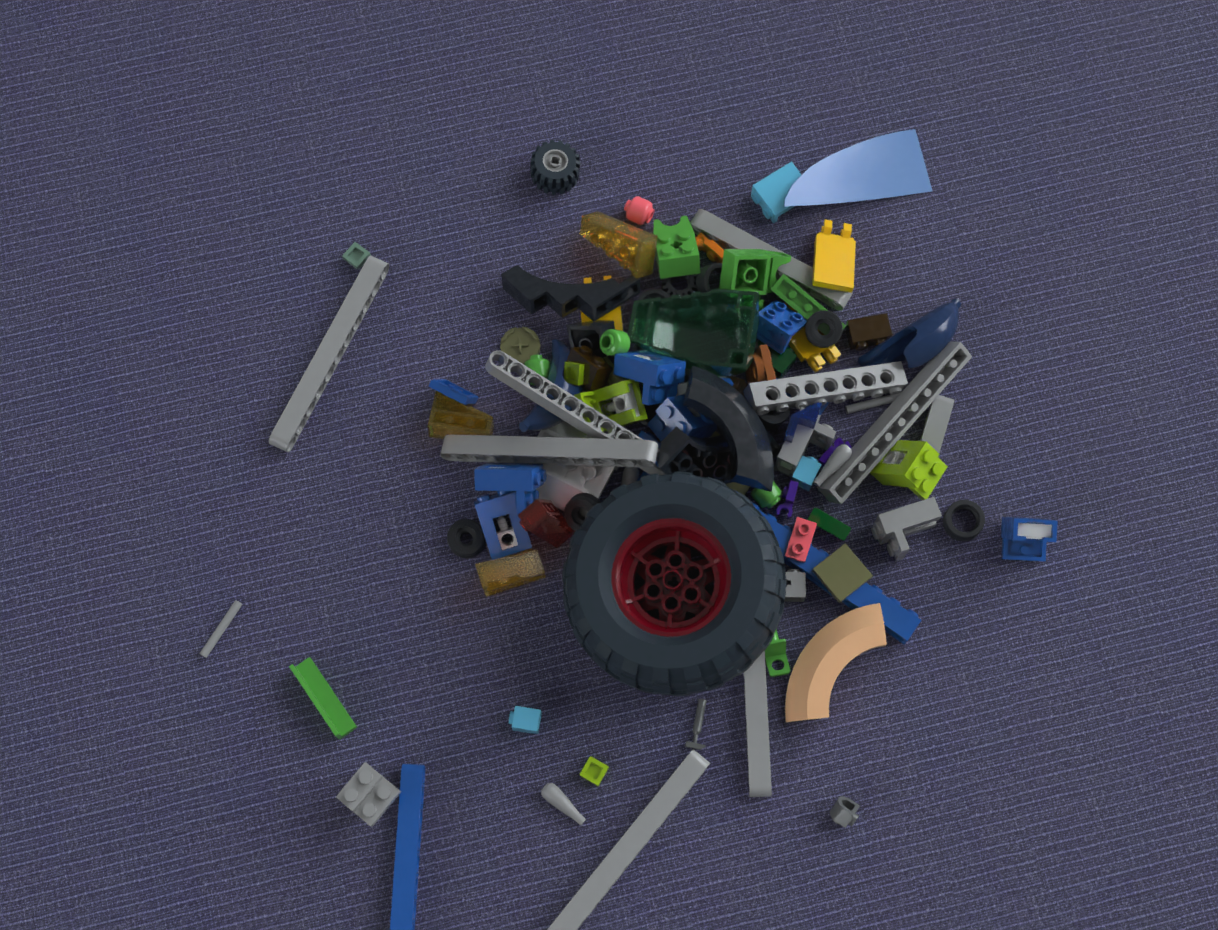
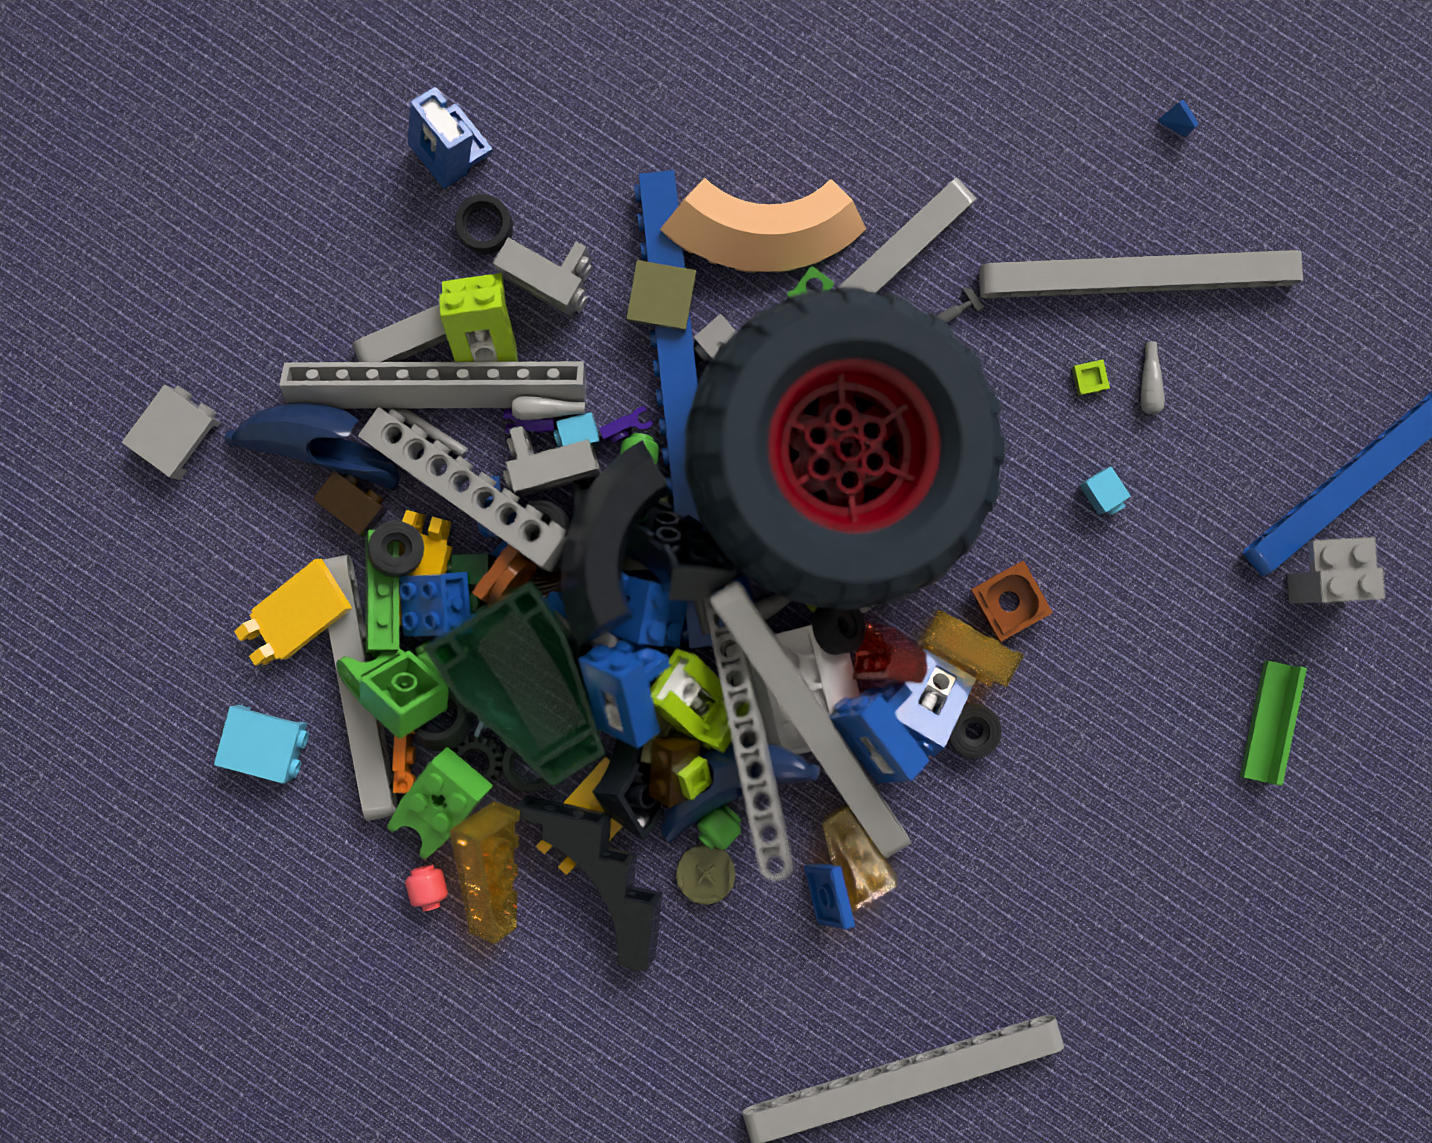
camera: 130 degrees left, 15 degrees up
(221, 628) = (1299, 900): light grey bar -> none
(504, 606) = (1031, 605): none -> dark orange piece
(555, 167) = (457, 1033): black wheel -> none
(614, 342) = (622, 762): bright green head -> none
(800, 539) = (661, 371): coral bracket -> none
(805, 417) = (522, 470): clear blue slope -> none
(829, 524) = (616, 358): green slope -> none
(844, 811) = (908, 90): dark grey plate -> none
(865, 171) = (152, 672): medium blue sticker -> none
(984, 277) = (170, 430): none -> light grey panel

